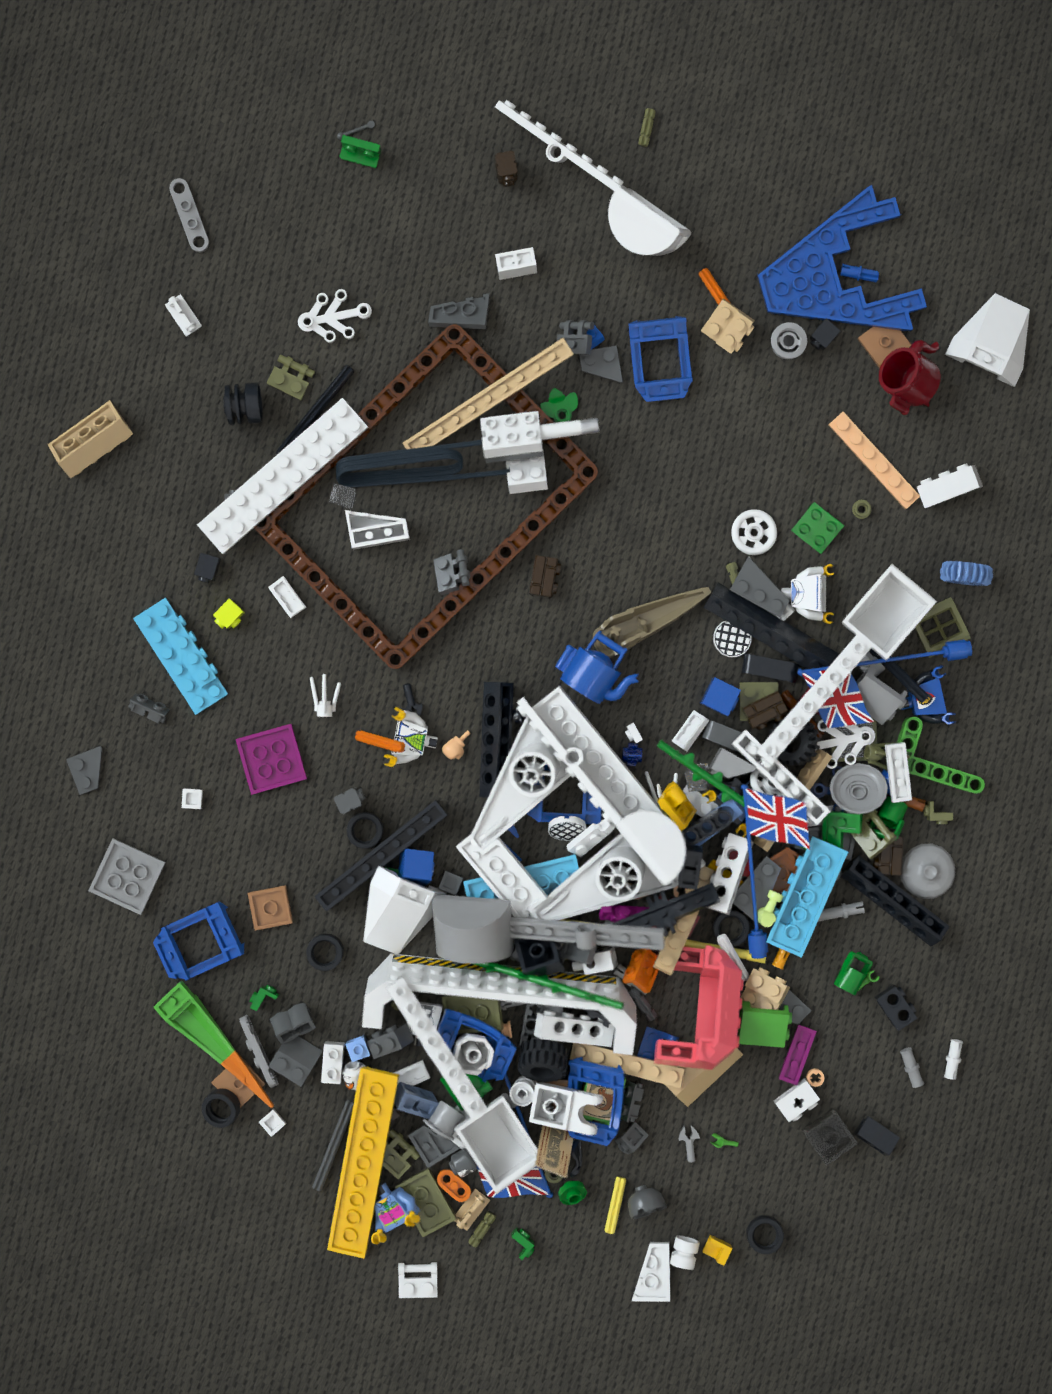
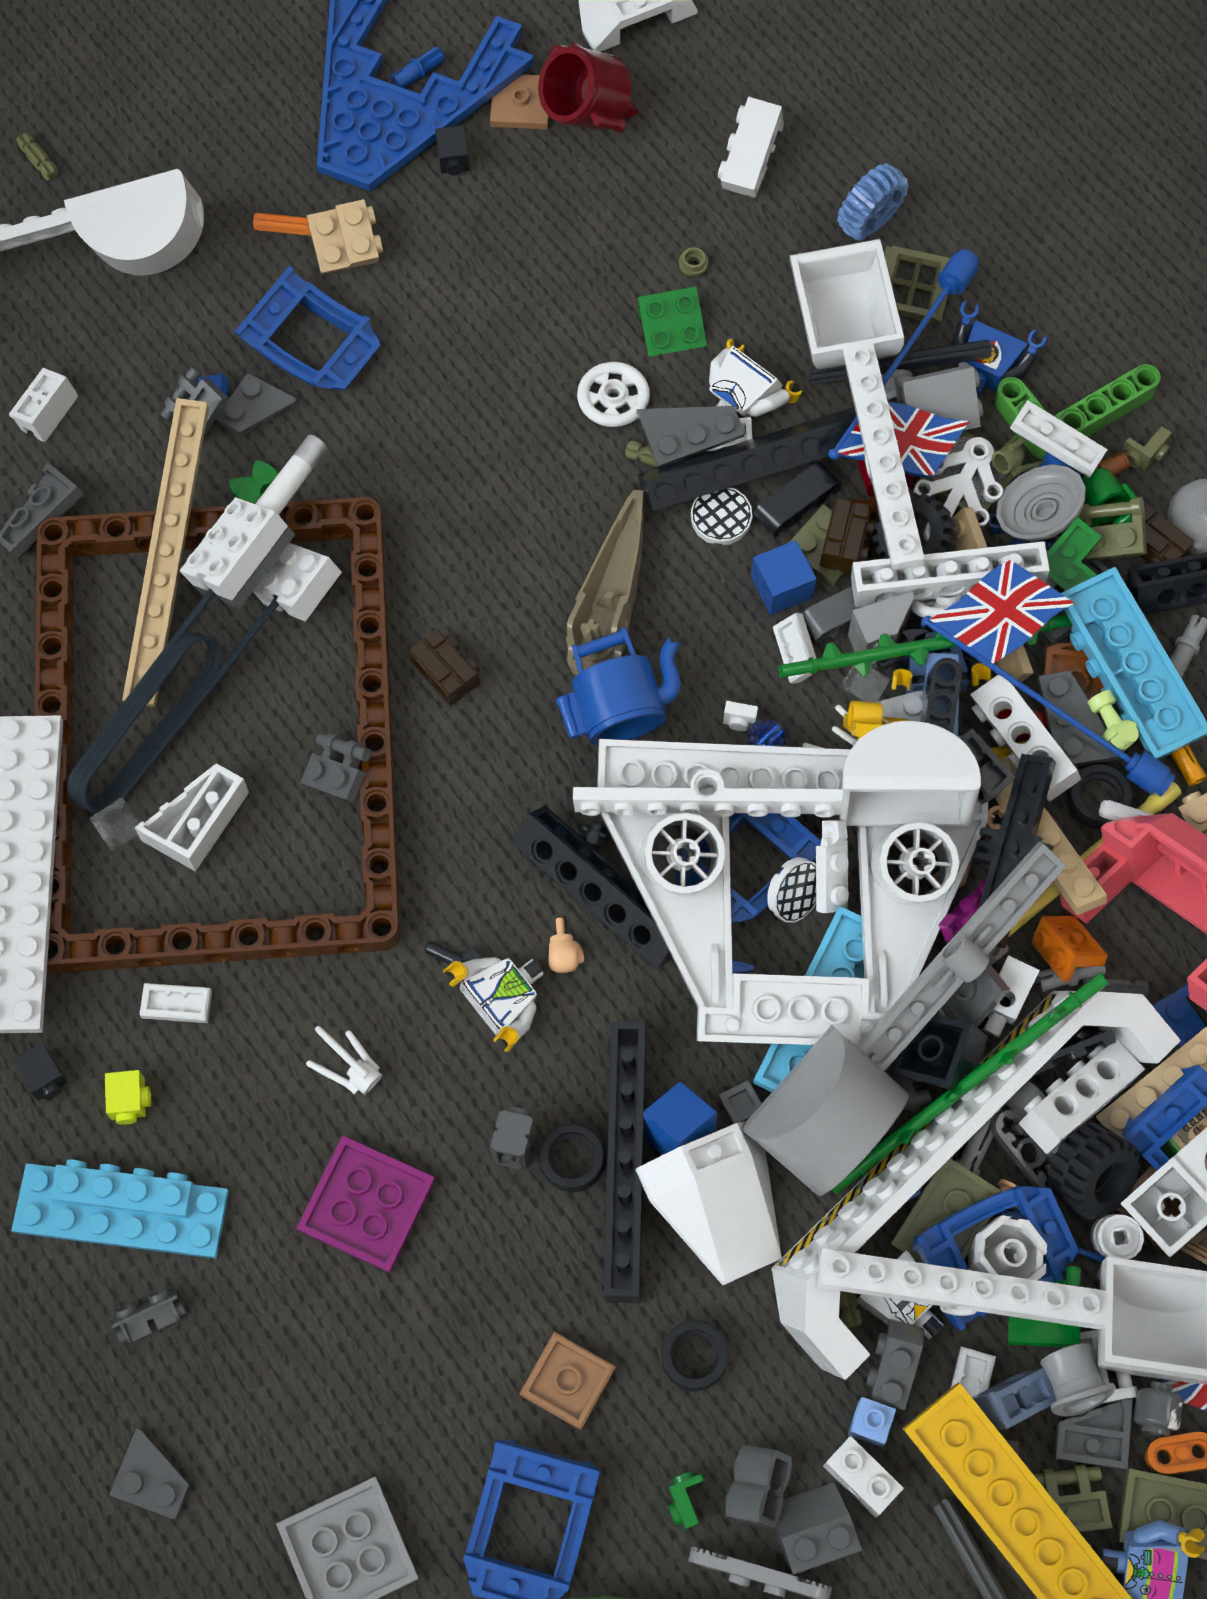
camera: 45 degrees left, 20 degrees down
(192, 798) = (322, 1360): white plate -> none
(351, 1074) = (905, 1461): white head -> none
(380, 741) = (470, 1034): orange axle -> none
(788, 340) = (423, 186): light grey piece -> none
(874, 460) = (648, 209): light nougat plate -> none

